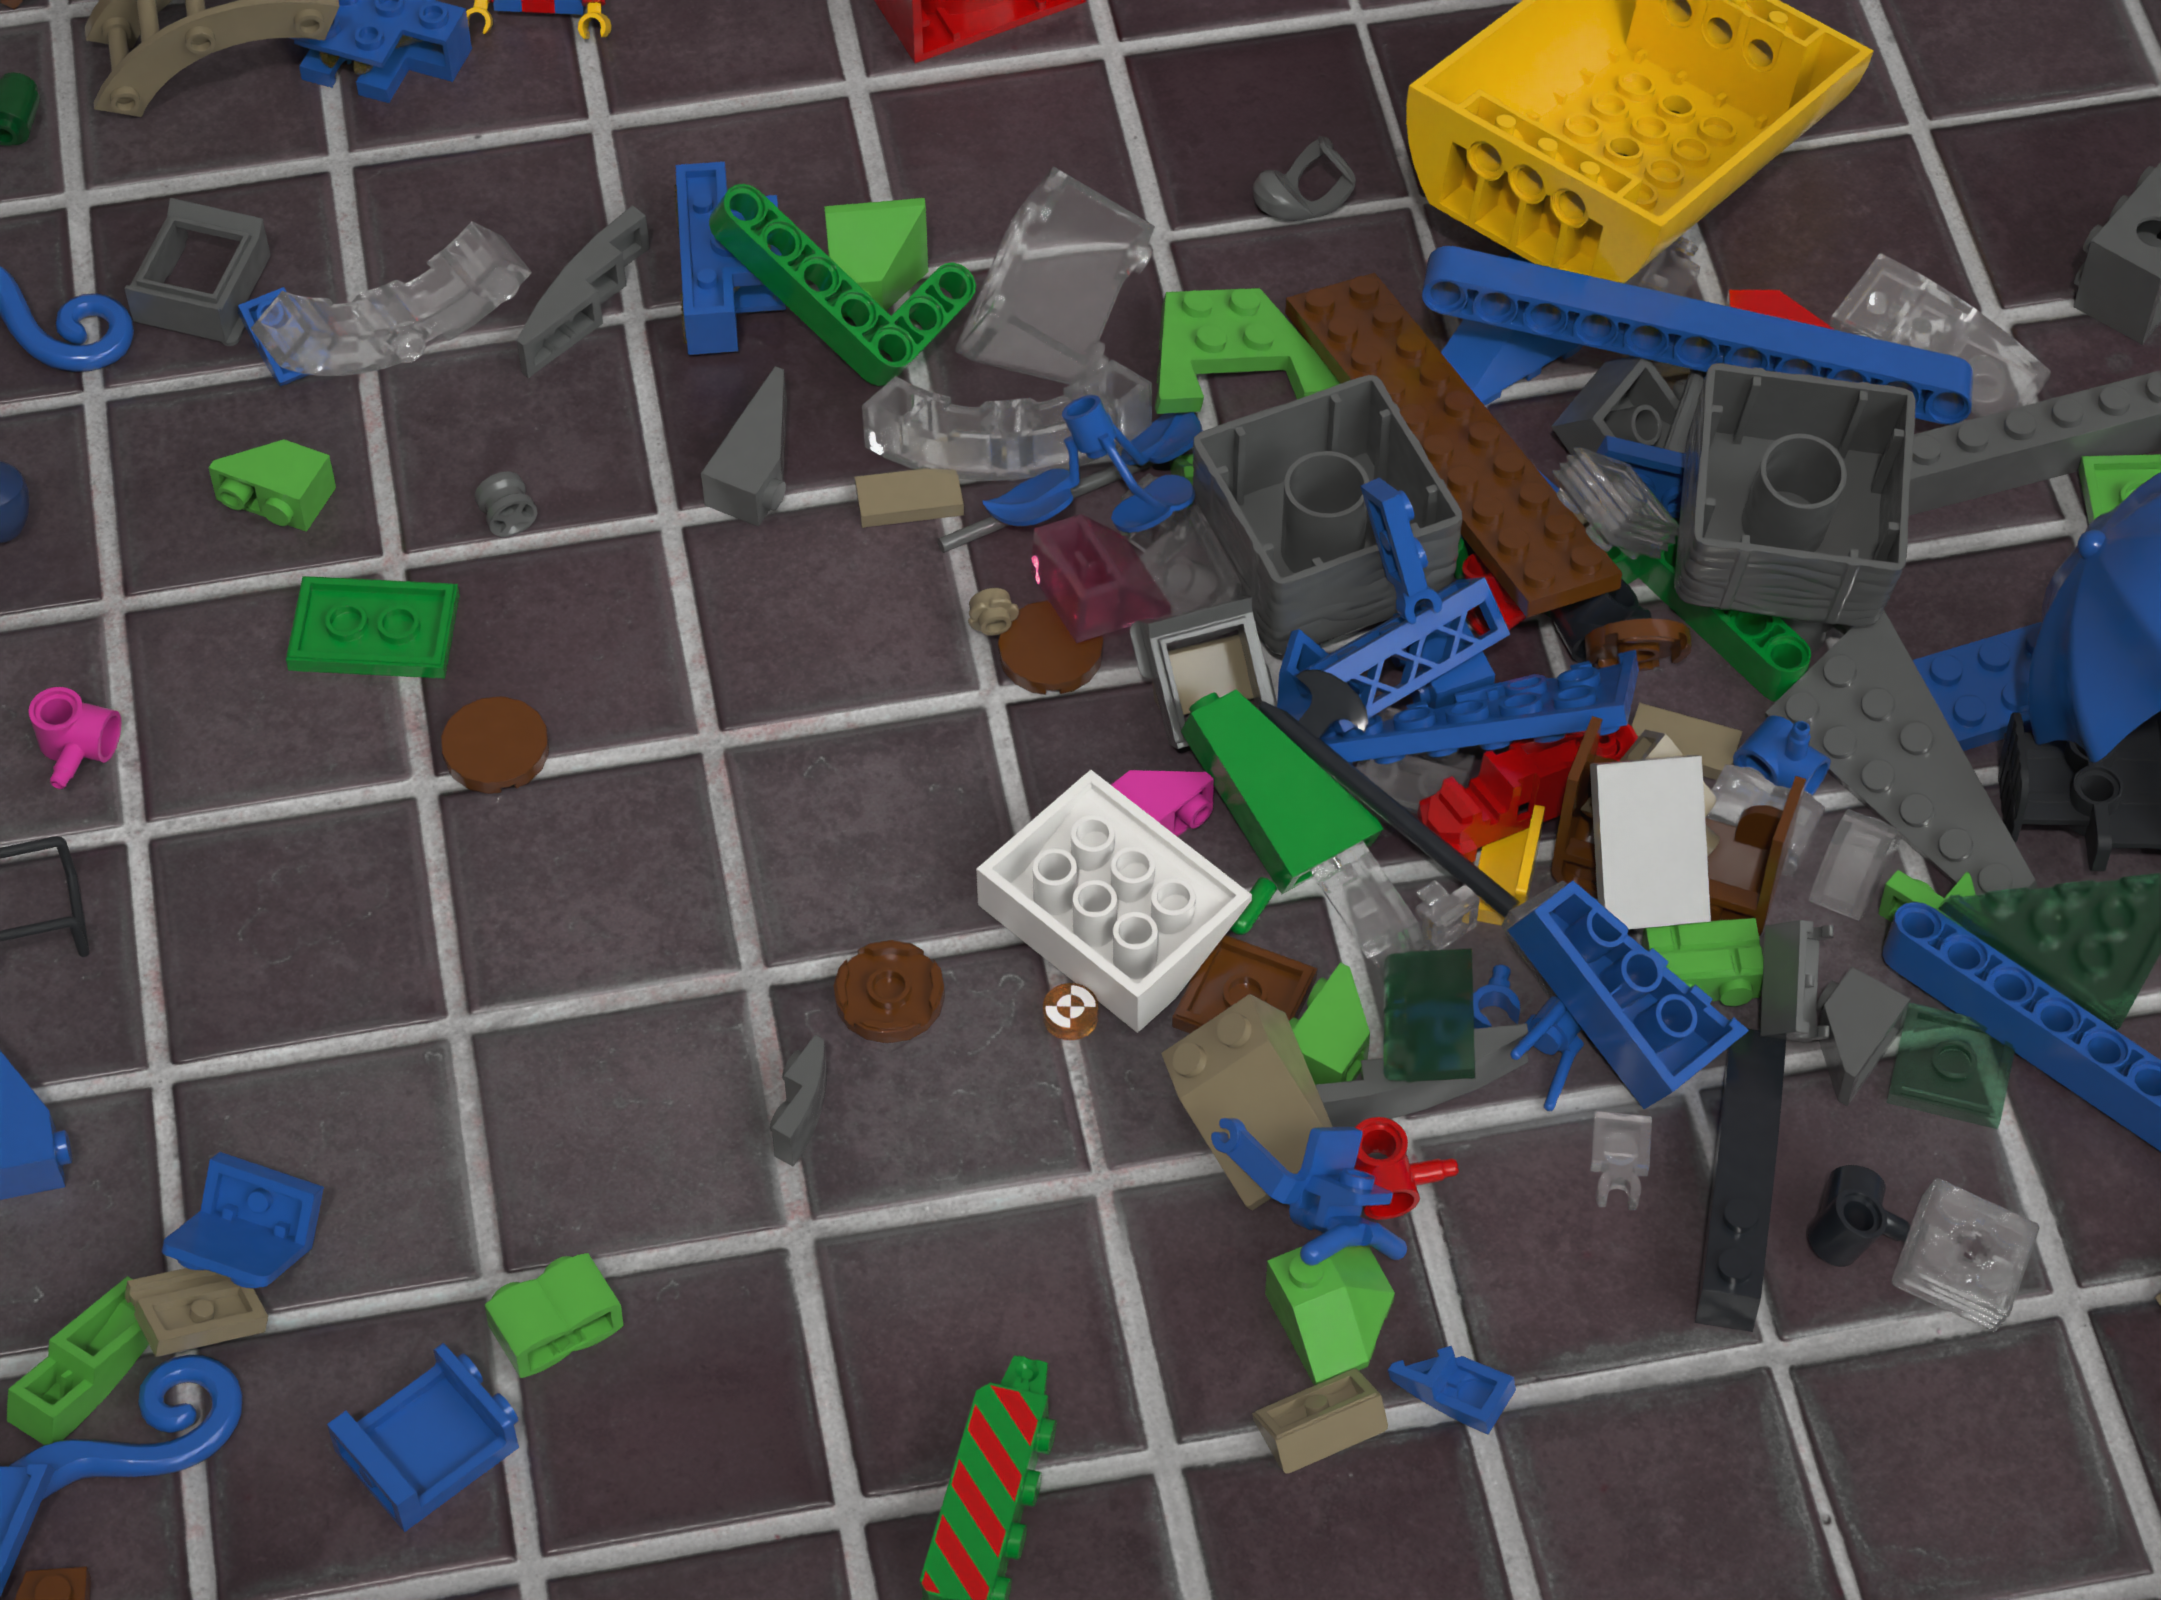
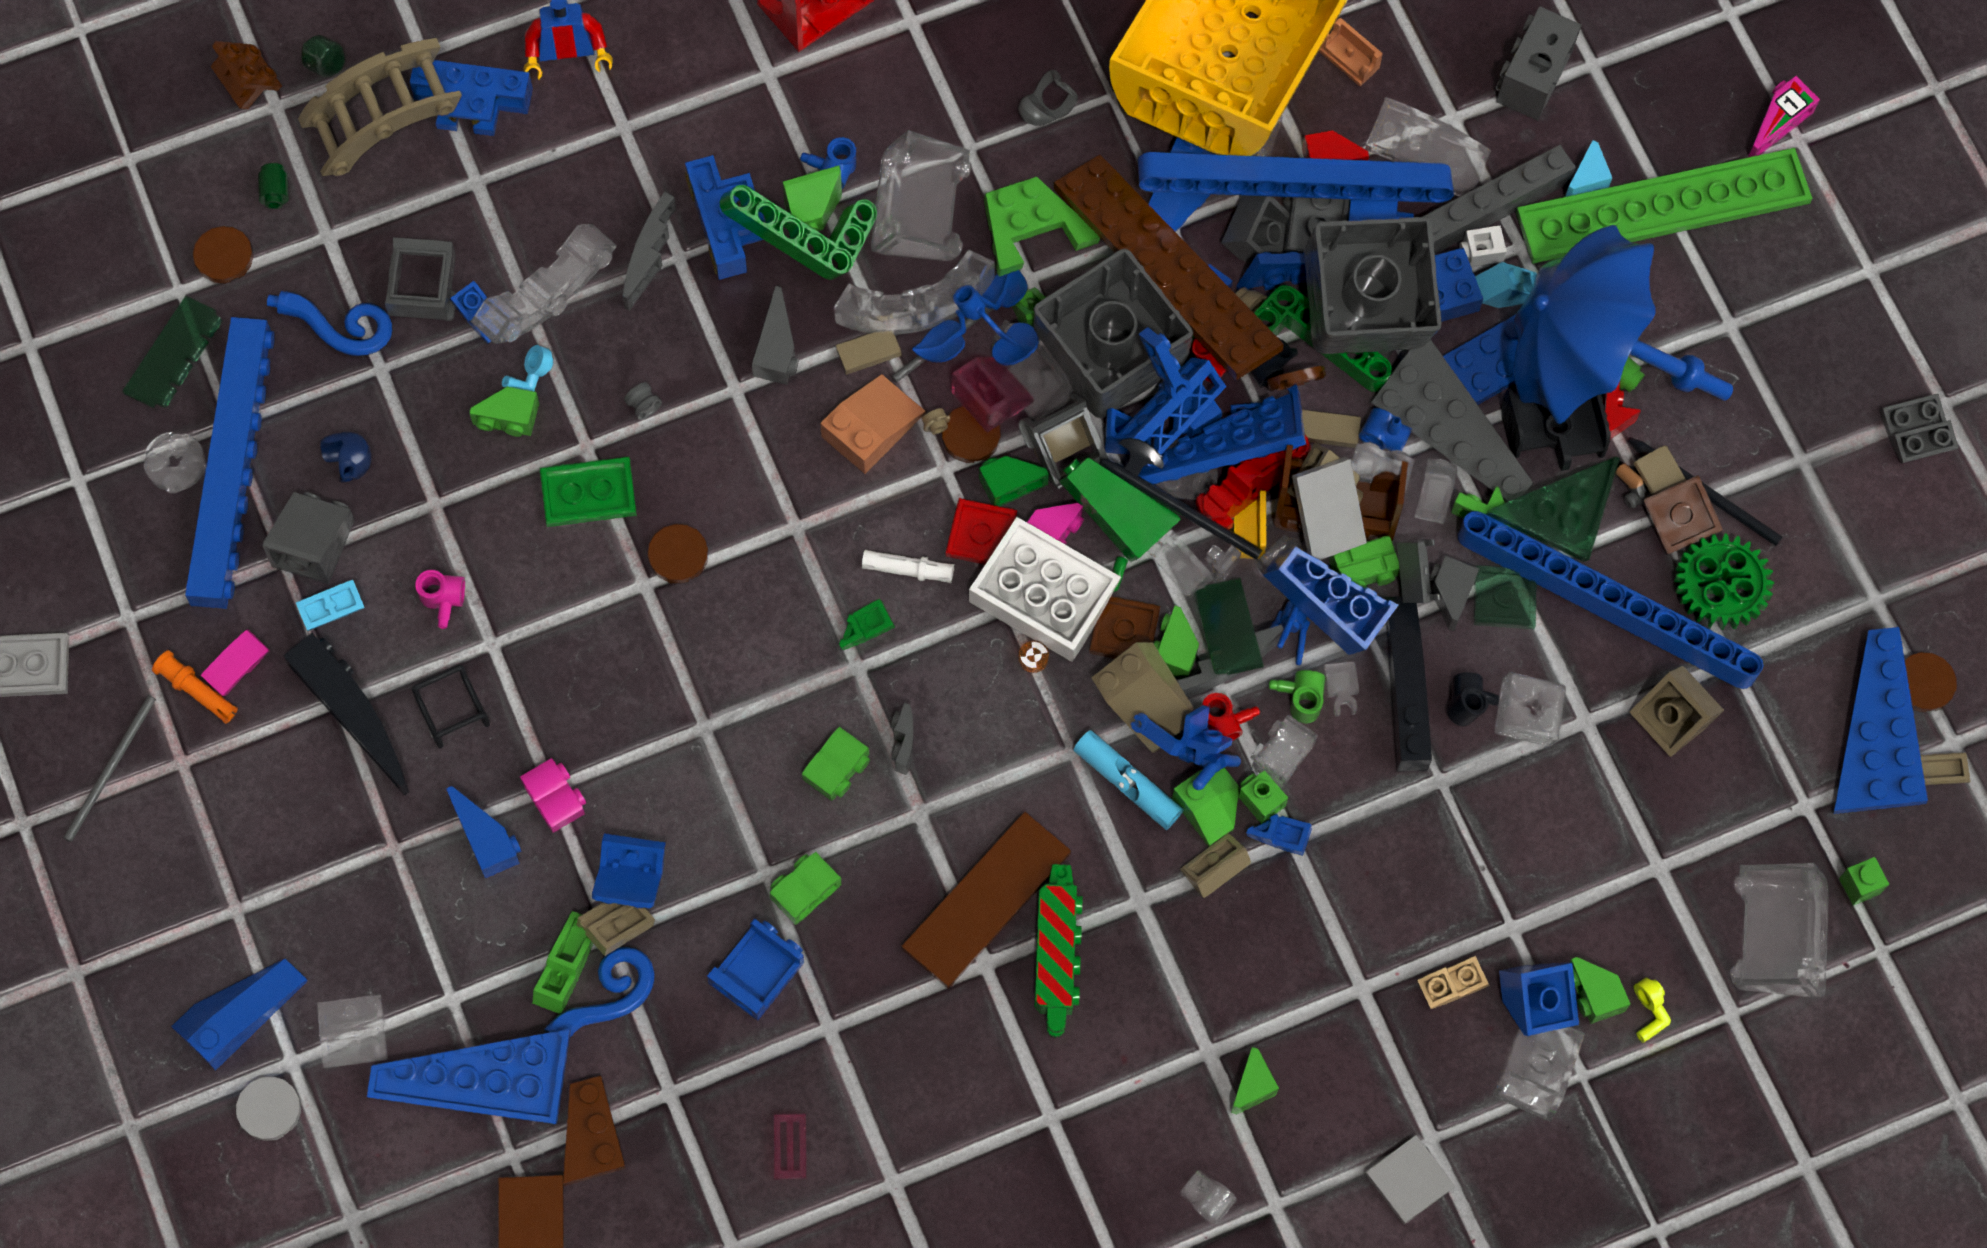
camera: 15 degrees left, 15 degrees up
(155, 1080) = (553, 795): none -> dark pink brick
(349, 423) = (537, 364): none -> medium azure plate
(668, 1120) = (836, 764): none -> bright green brick
(787, 910) = (866, 624): none -> green slope
(875, 1401) = (986, 900): none -> reddish brown tile
(878, 600) = (870, 422): none -> nougat slope
(890, 1009) = (933, 673): reddish brown tile -> none
(904, 835) = (912, 567): none -> white pin
(944, 209) = (836, 147): none -> blue piece
(1014, 792) = (978, 530): none -> red tile
(1101, 724) = (1010, 479): none -> green slope
(1186, 1235) = (1112, 765): none -> medium azure piece
(1432, 1312) = (1262, 796): none -> bright green brick
(1488, 1244) = (1284, 751): none -> clear brick
(1496, 994) = (1259, 602): blue piece -> none
(1553, 1144) = (1307, 686): none -> bright green piece
(1615, 504) = (1271, 299): clear brick -> none
(1834, 192) = (1351, 52): none -> nougat hinge
(1946, 556) = (1456, 285): none -> blue brick
(2011, 505) = (1487, 239): none -> white brick
(2025, 563) = (1505, 285): none -> medium azure slope

